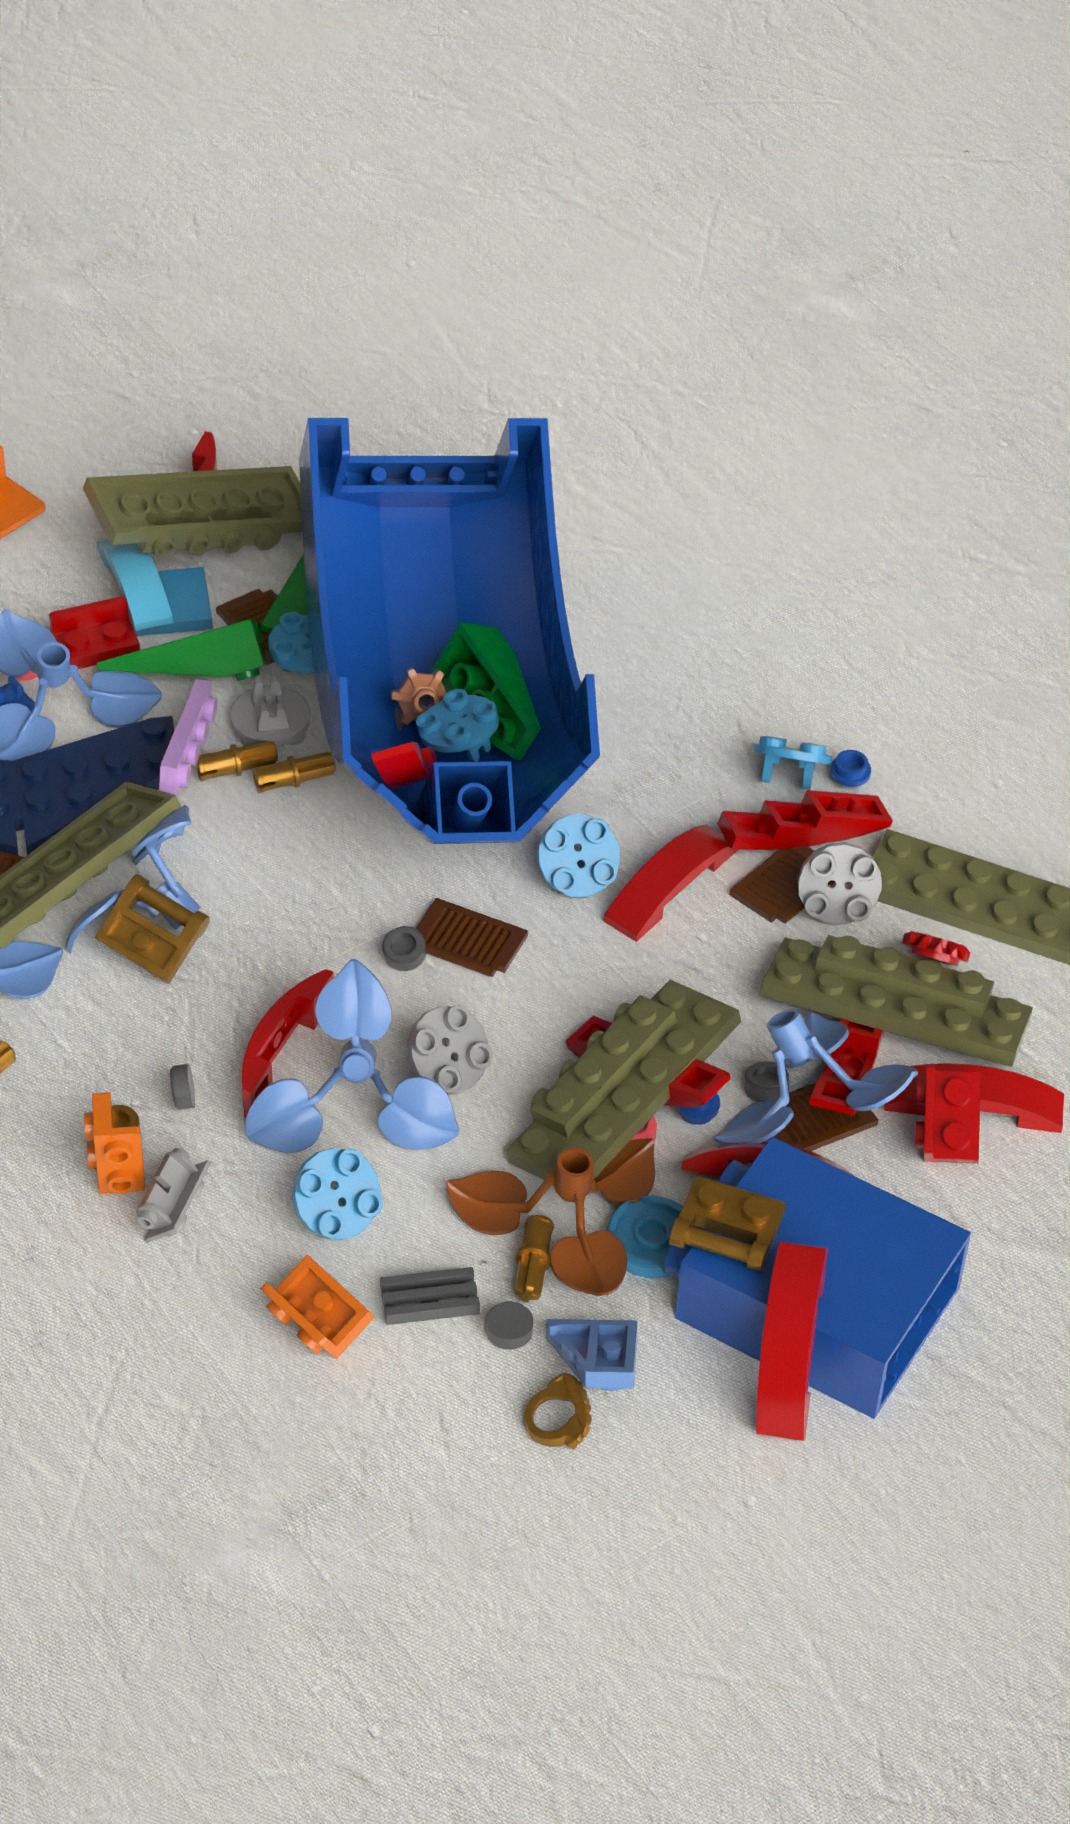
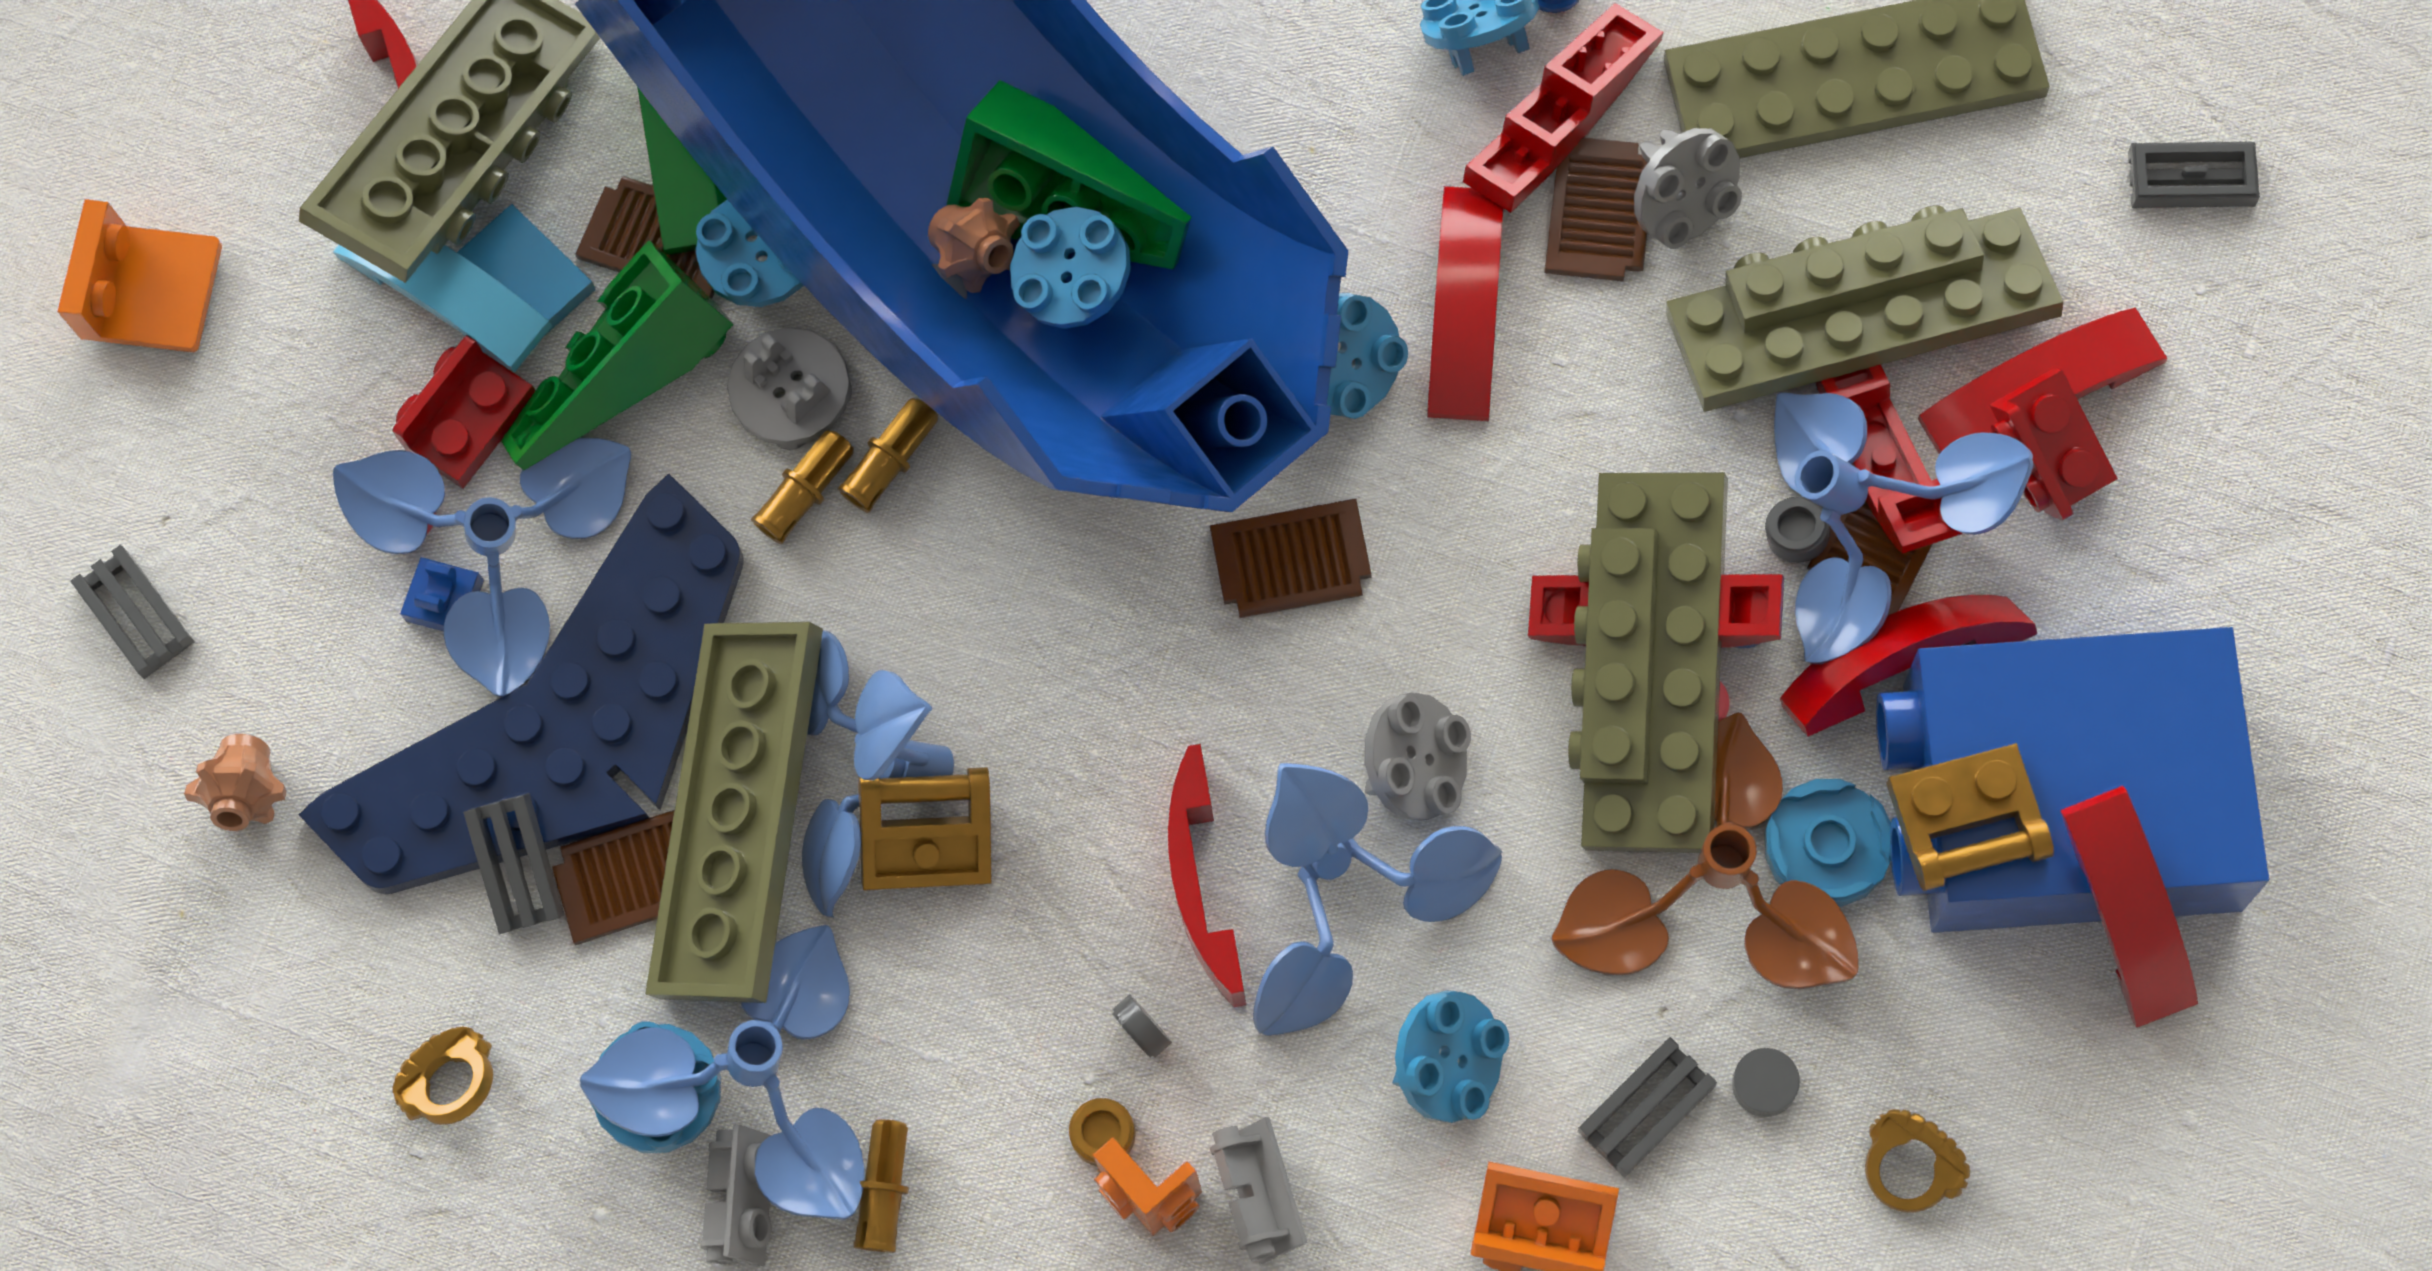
camera: 25 degrees left, 25 degrees up
(186, 739) = (746, 529): lavender plate -> none
(404, 764) = (1085, 395): red slope -> none
(404, 948) = (1234, 631): dark grey tile -> none
(533, 1257) = (1726, 974): pearl gold axle -> none
(597, 1350) = (1901, 1054): medium blue wing -> none
(935, 948) = (1859, 203): red gear -> none

